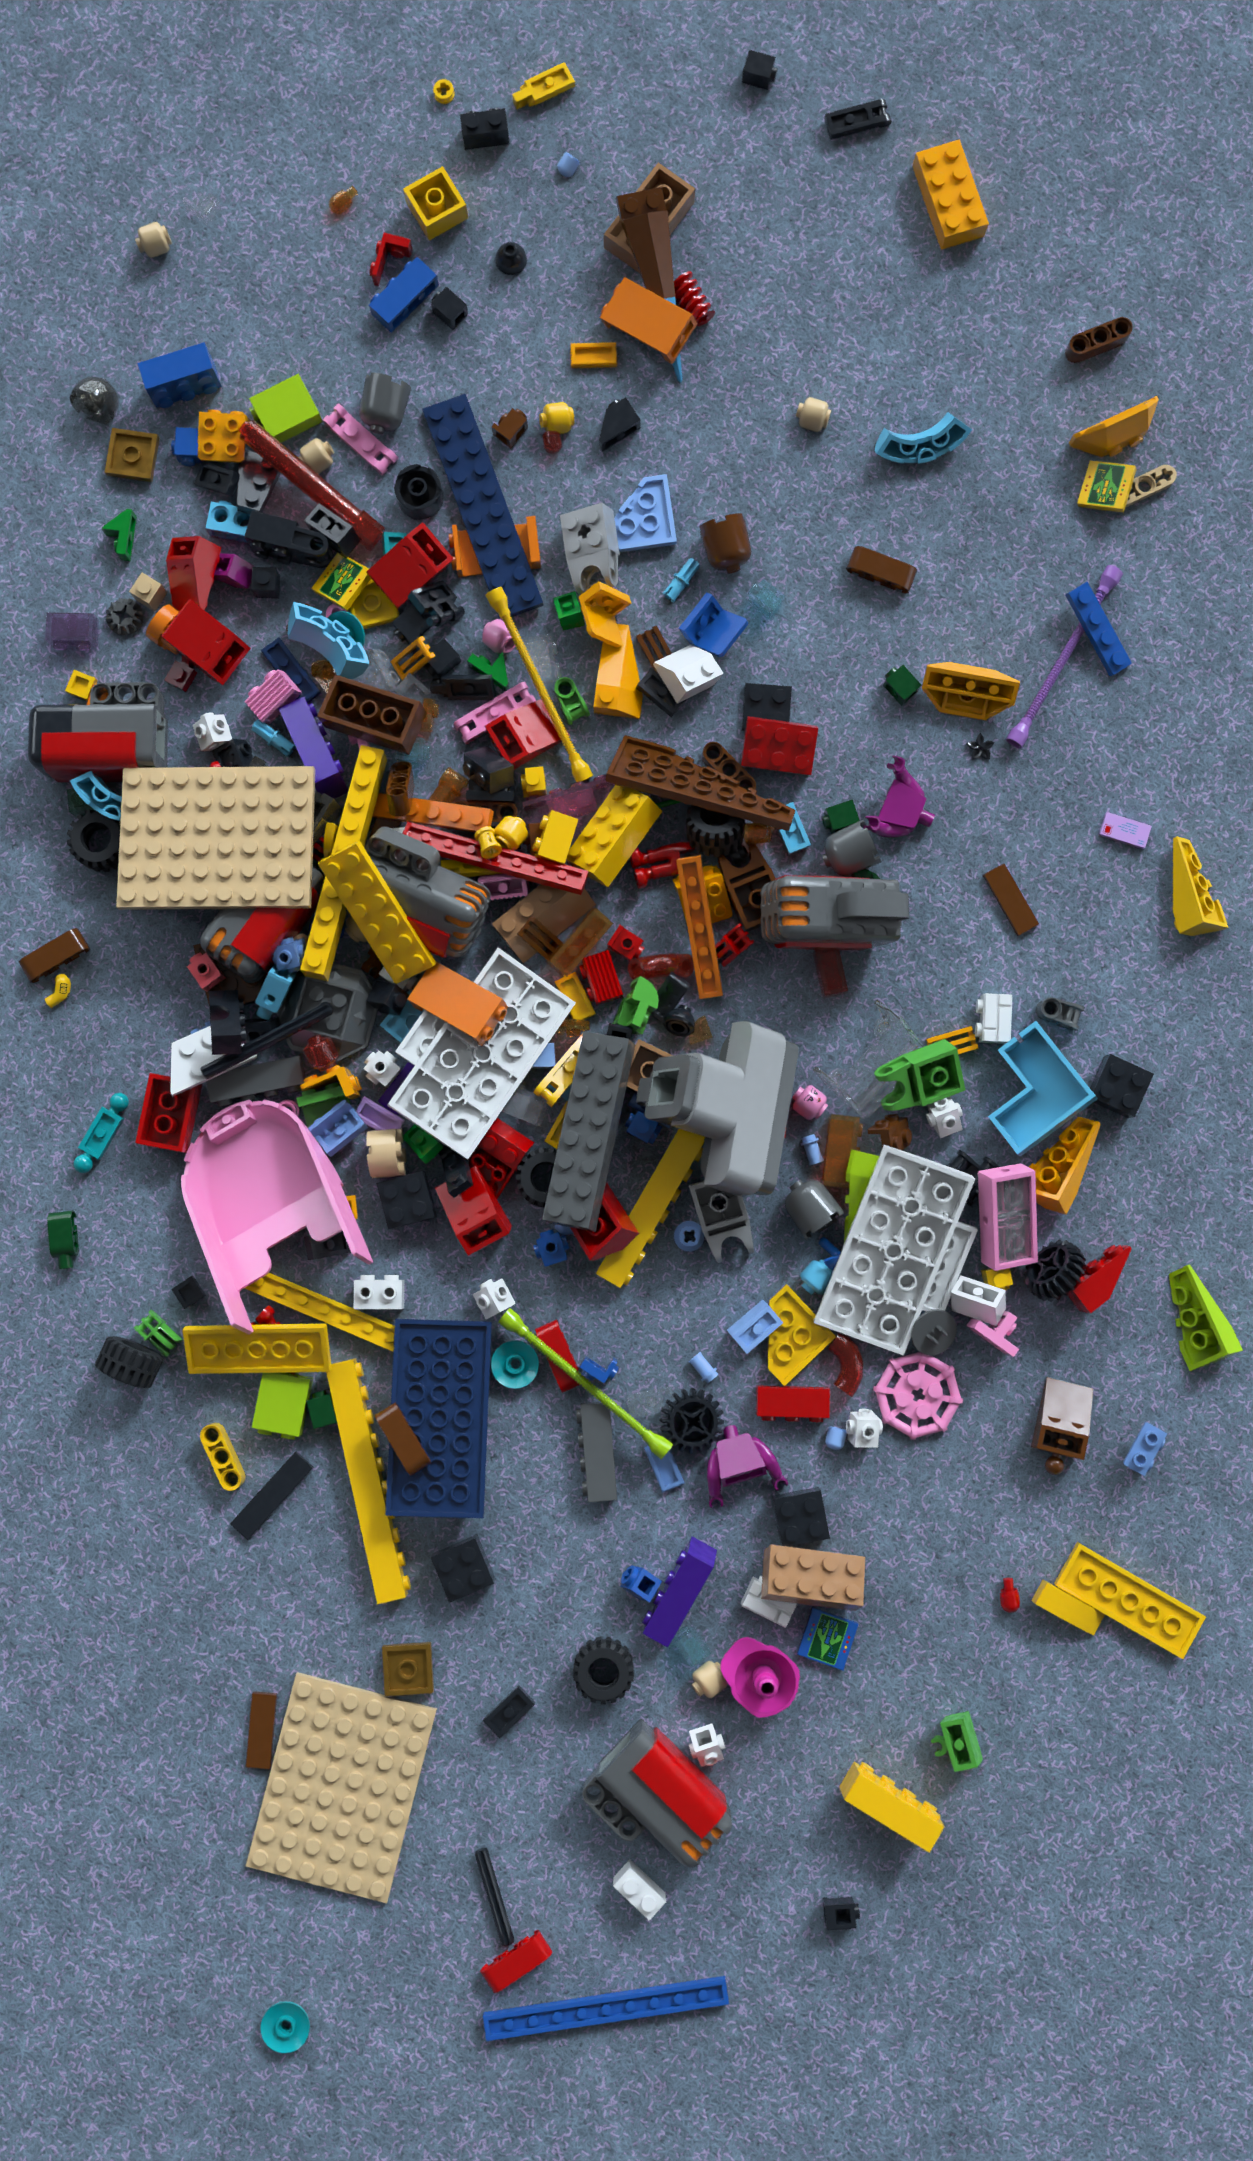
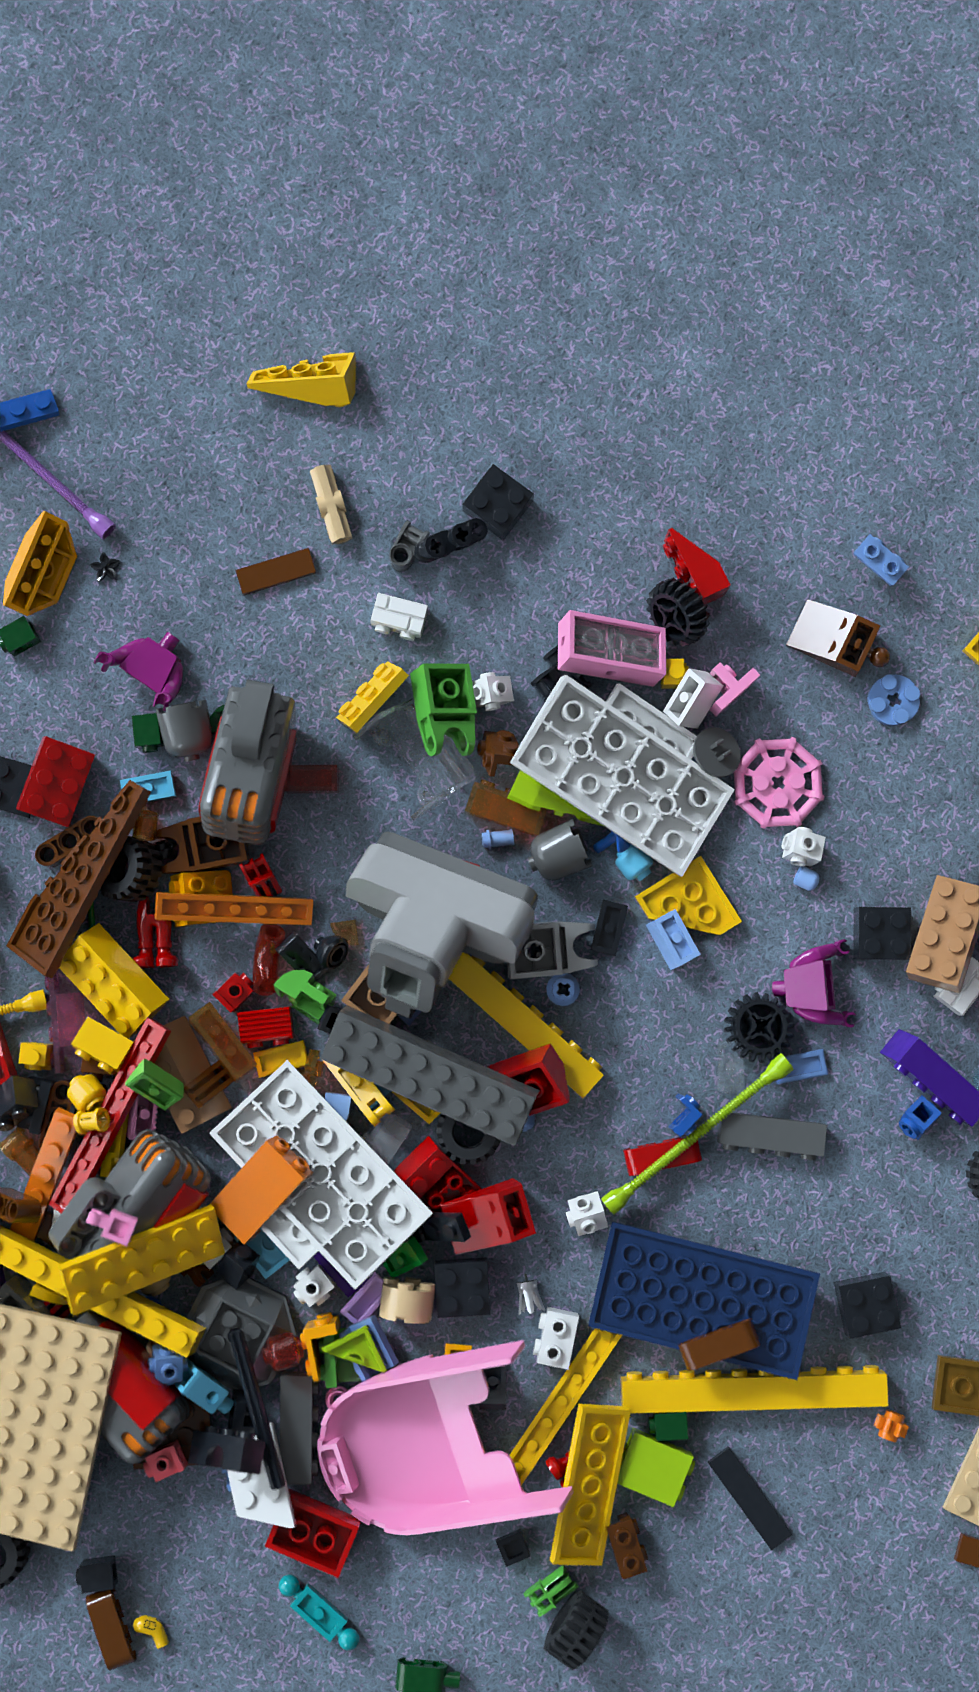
camera: 80 degrees left, 0 degrees up
(97, 933) = (97, 1574): none -> black brick
(203, 1395) = (626, 1547): none -> reddish brown bracket
(212, 1449) = (711, 1547): yellow beam -> none
(336, 1118) = (357, 1348): none -> lime tile
(360, 1611) = (891, 1425): none -> orange gear
(403, 884) = (116, 1227): none -> bright pink plate
(414, 1260) = (529, 1292): none -> flat silver piece
(510, 1376) = (674, 1211): teal dish -> none
(530, 891) = (155, 1084): none -> bright green slope
(558, 1255) = (548, 1150): blue brick -> none
(643, 1128) = (438, 1016): blue brick -> none
(703, 1368) = (705, 1003): light blue pin -> none
(753, 1266) = (609, 927): none -> black plate
(792, 1403) = (761, 916): red brick -> none
(809, 1102) = (447, 830): bright pink head -> none
(850, 1363) = (731, 846): clear red cylinder -> none
(917, 1009) = (371, 696): none -> yellow plate
(971, 1038) = (414, 644): light orange tile -> none
(1025, 1498) = (907, 694): none -> medium blue plate
(1051, 1093) = (486, 572): medium azure piece -> none
(1064, 1164) = (568, 578): light orange wedge -> none
(1076, 1054) = (453, 540): none -> black axle
(1083, 935) = (331, 504): none -> tan piece
(1125, 830) = (228, 436): lavender tile -> none
(1204, 1327) = (768, 470): lime wedge -> none

